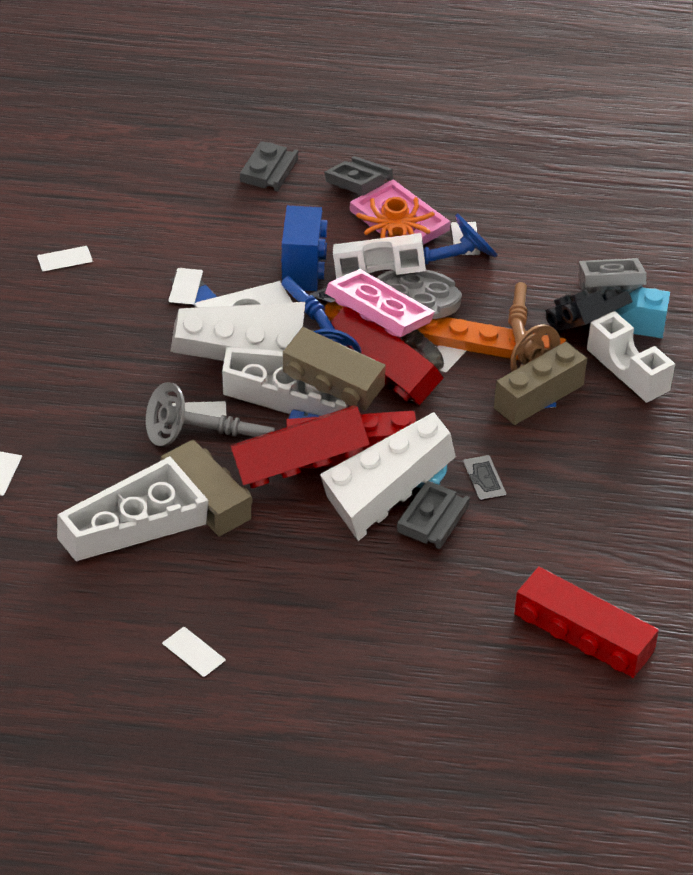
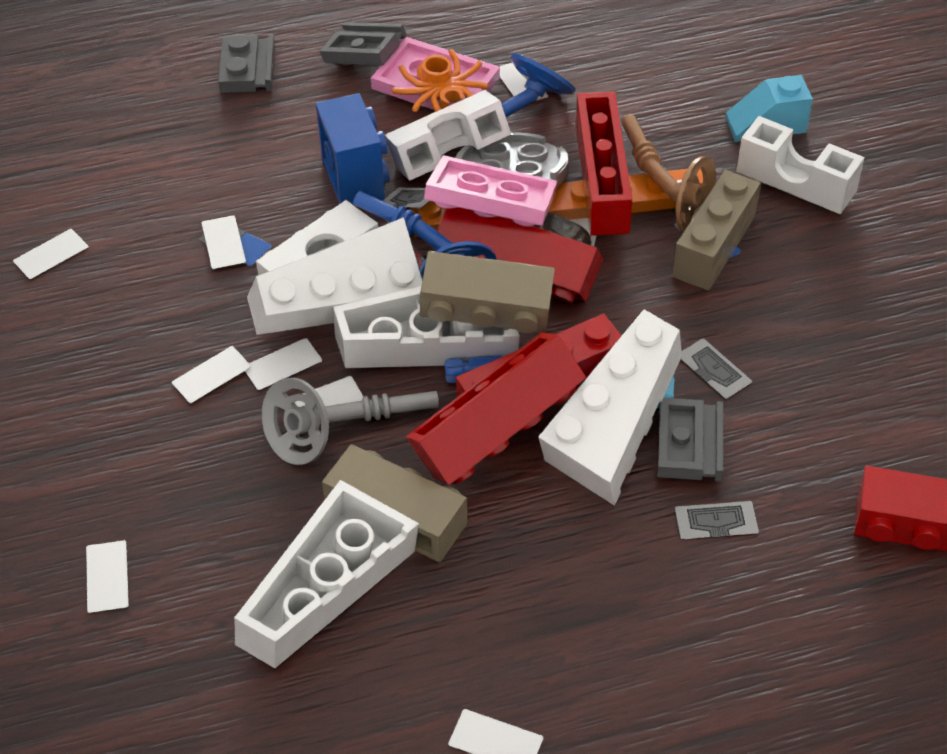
camera: 20 degrees left, 5 degrees up
(131, 370) = (211, 374): none -> white sticker
(185, 378) = (282, 363): none -> white sticker
(423, 572) = (716, 520): none -> sticker
(475, 309) = (603, 164): none -> red brick
(584, 308) = (718, 124): black plate -> none
(611, 274) = (721, 75): light grey plate -> none

